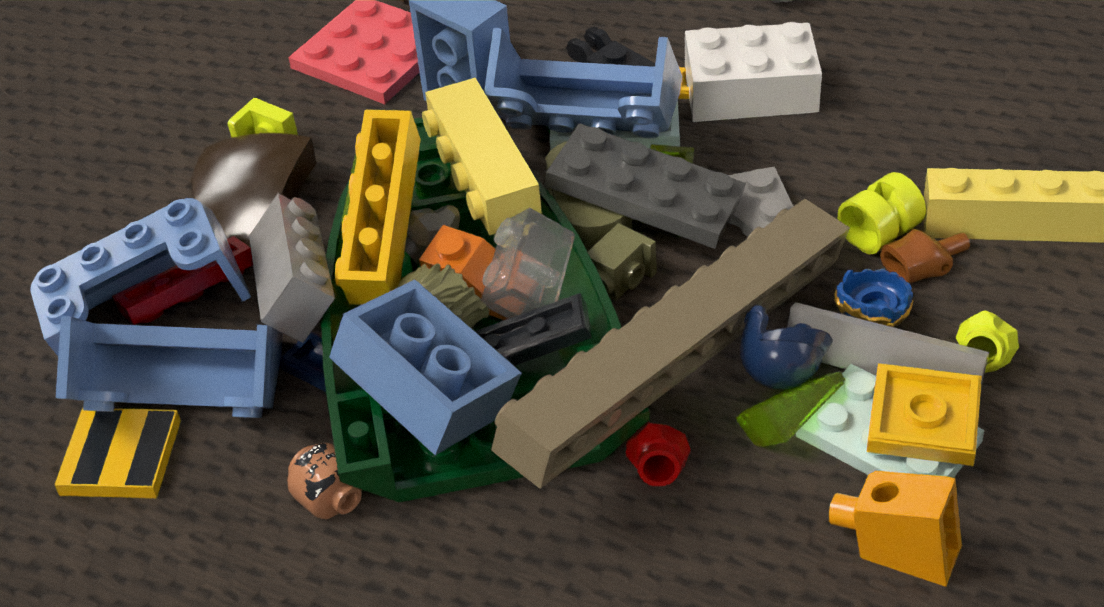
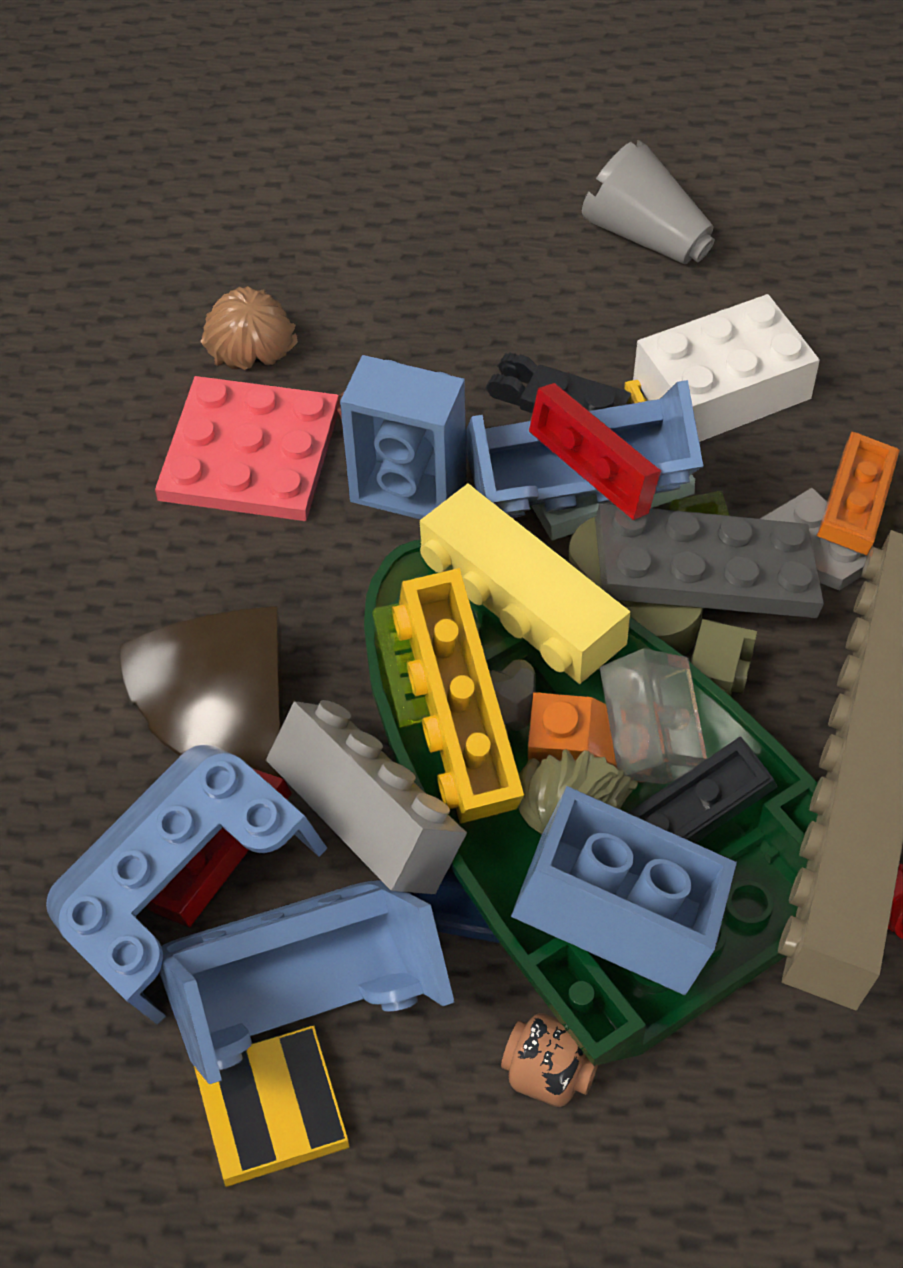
camera: 25 degrees left, 10 degrees up
(261, 118) = (187, 594): neon yellow bracket -> none
(589, 83) = (594, 451): none -> red plate
(806, 175) = (859, 493): none -> orange tile

